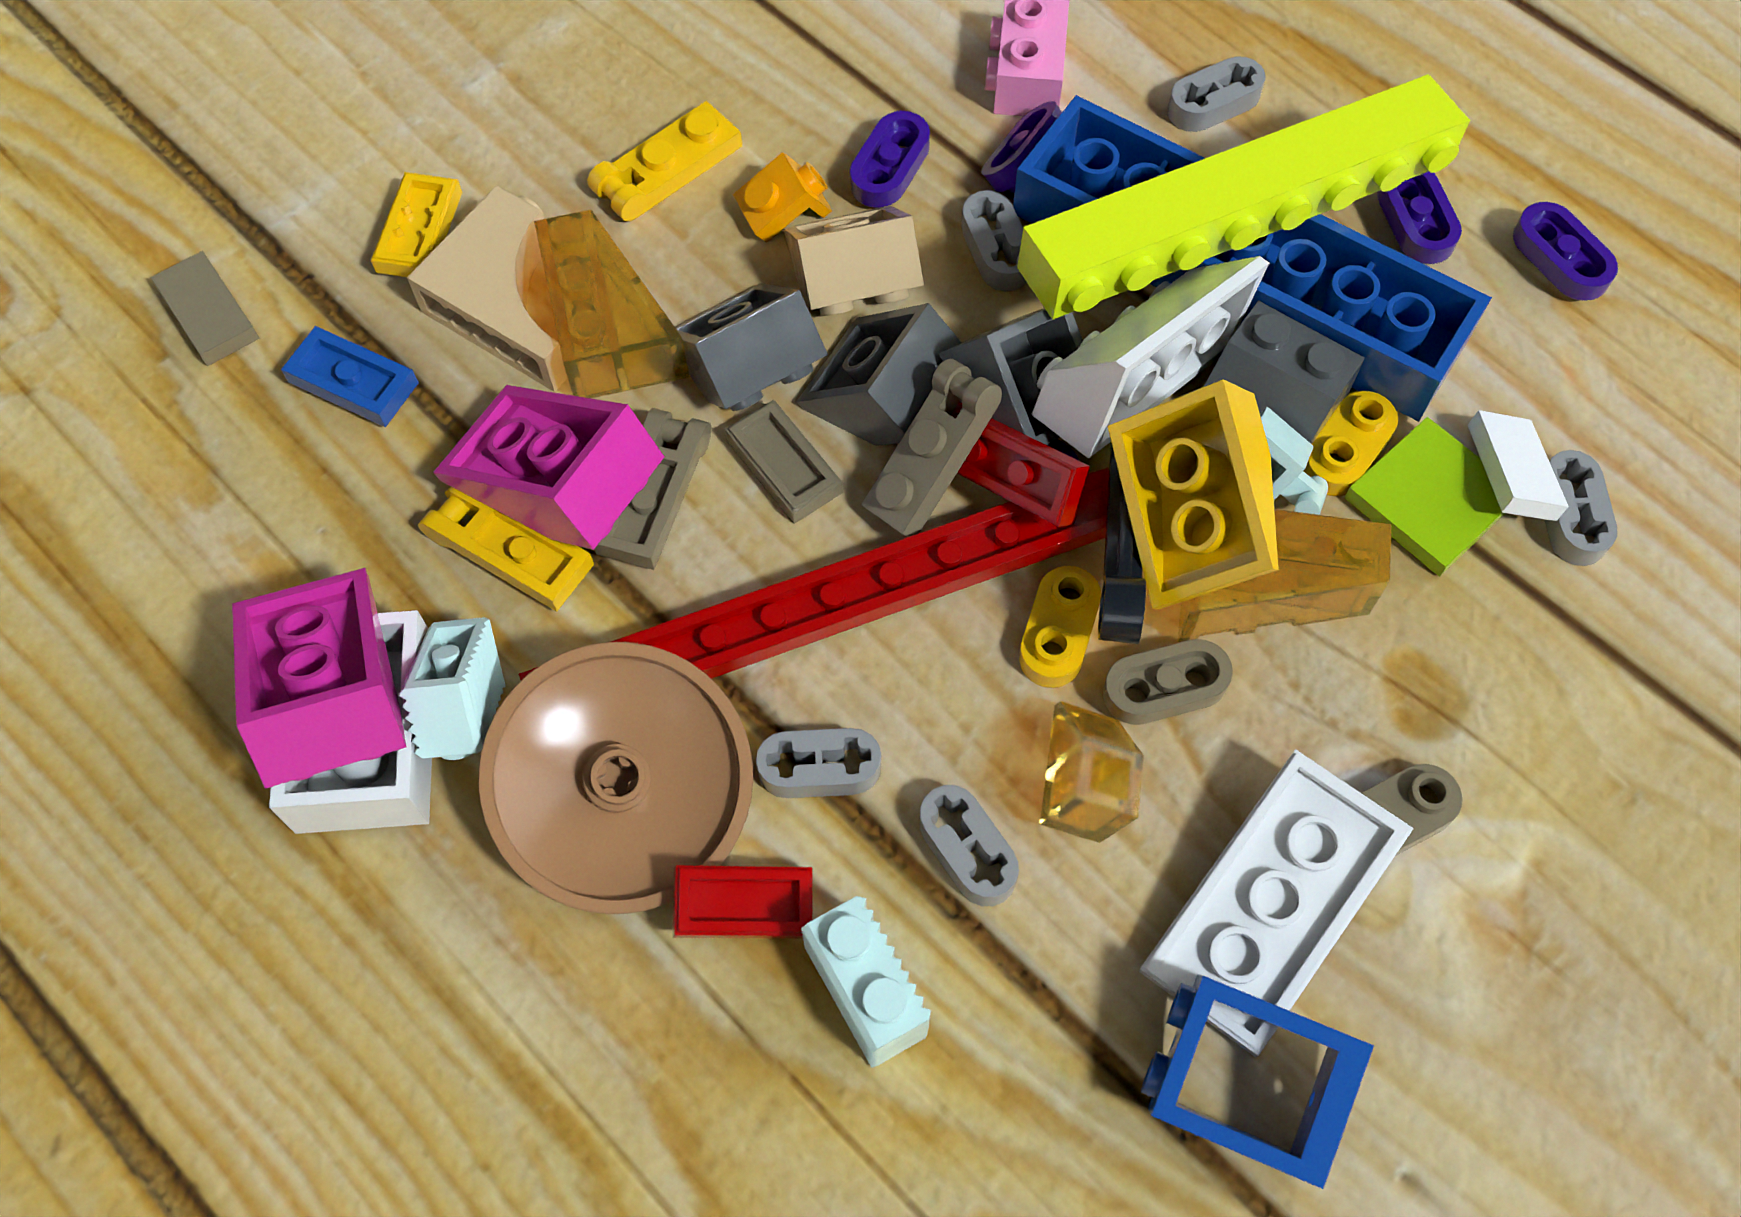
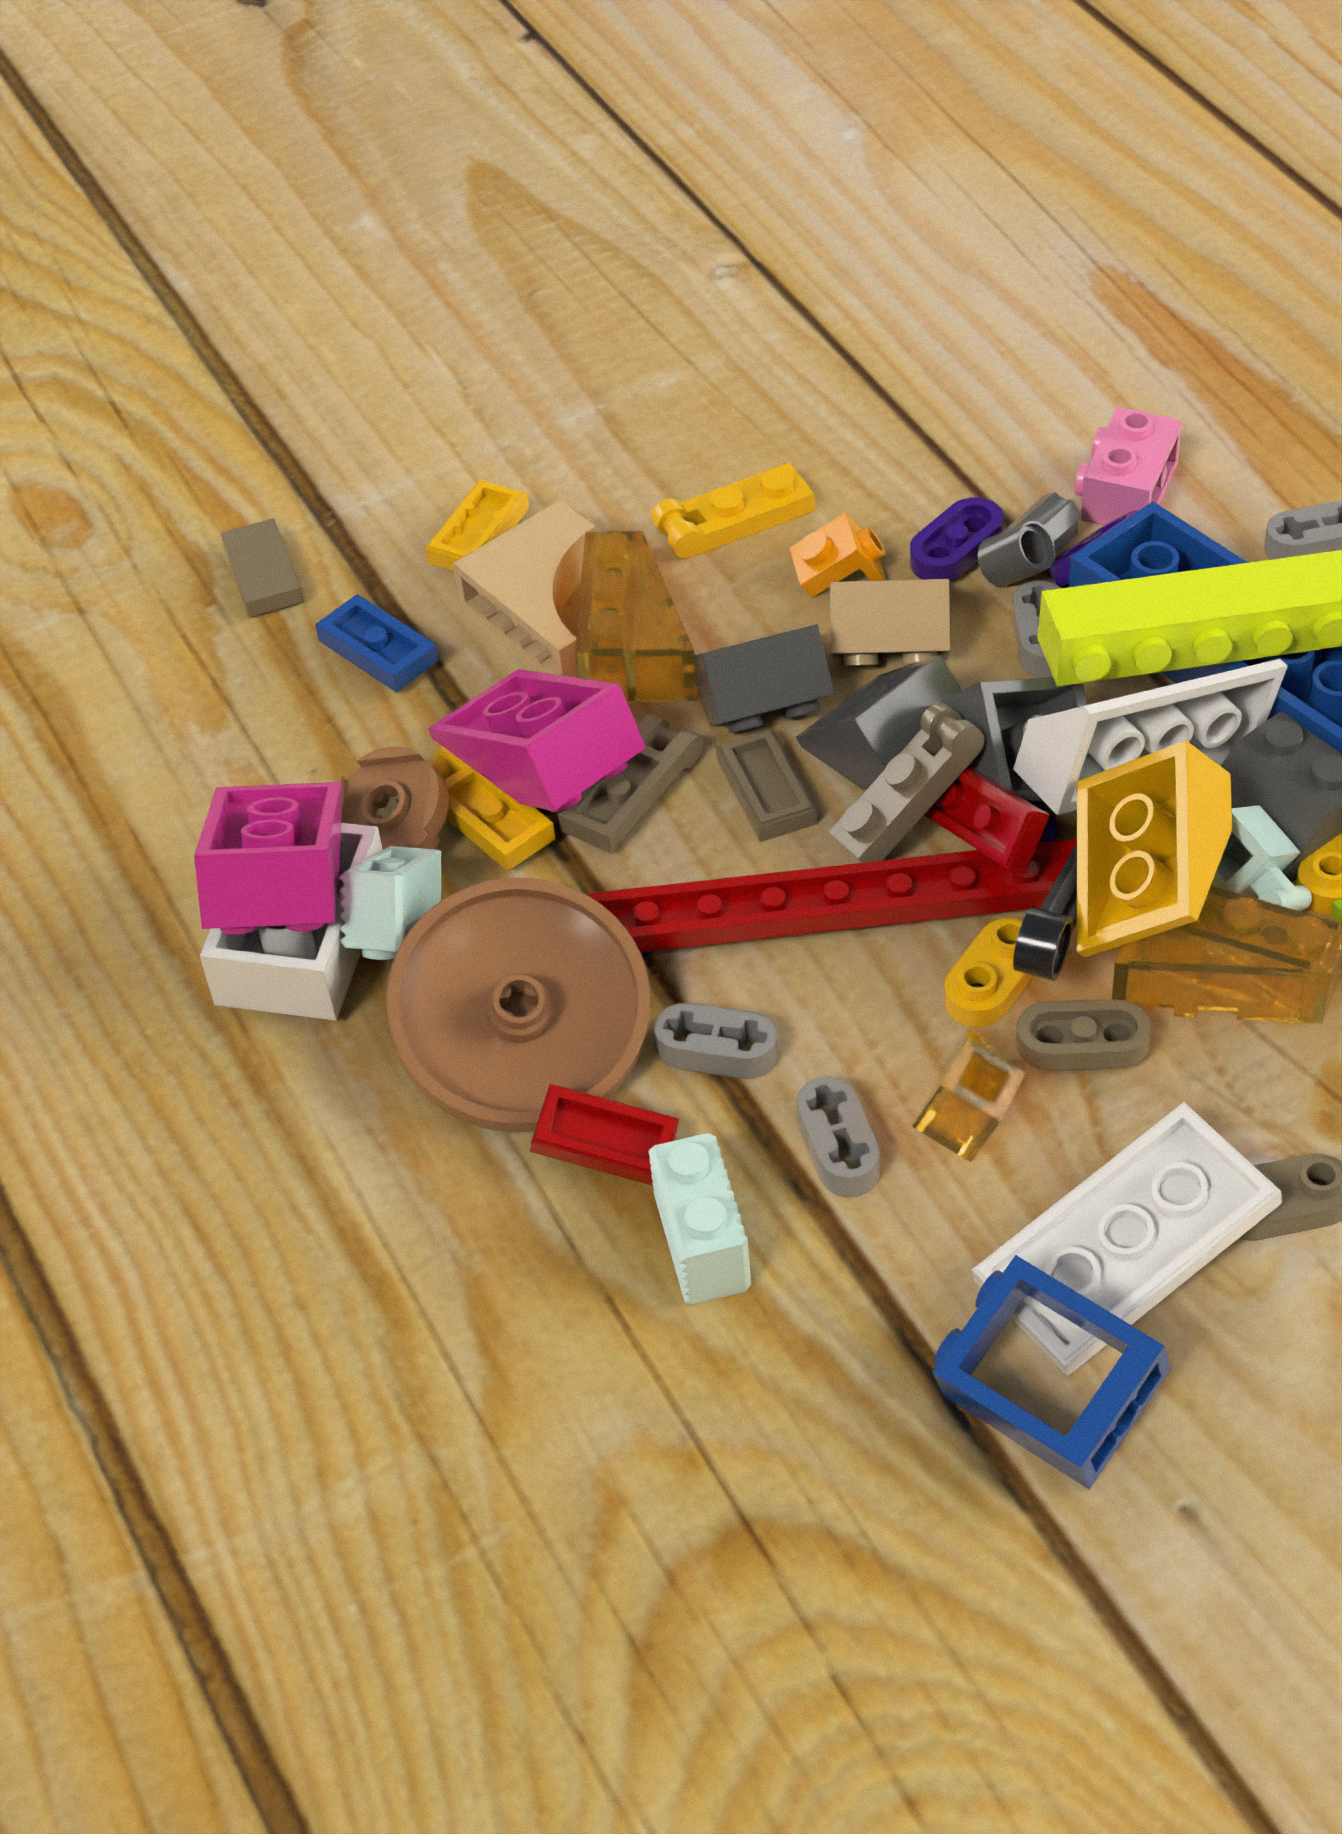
camera: 20 degrees right, 15 degrees down
(451, 560) = (417, 788): none -> medium nougat plate
(963, 150) = (1030, 541): none -> dark grey piece

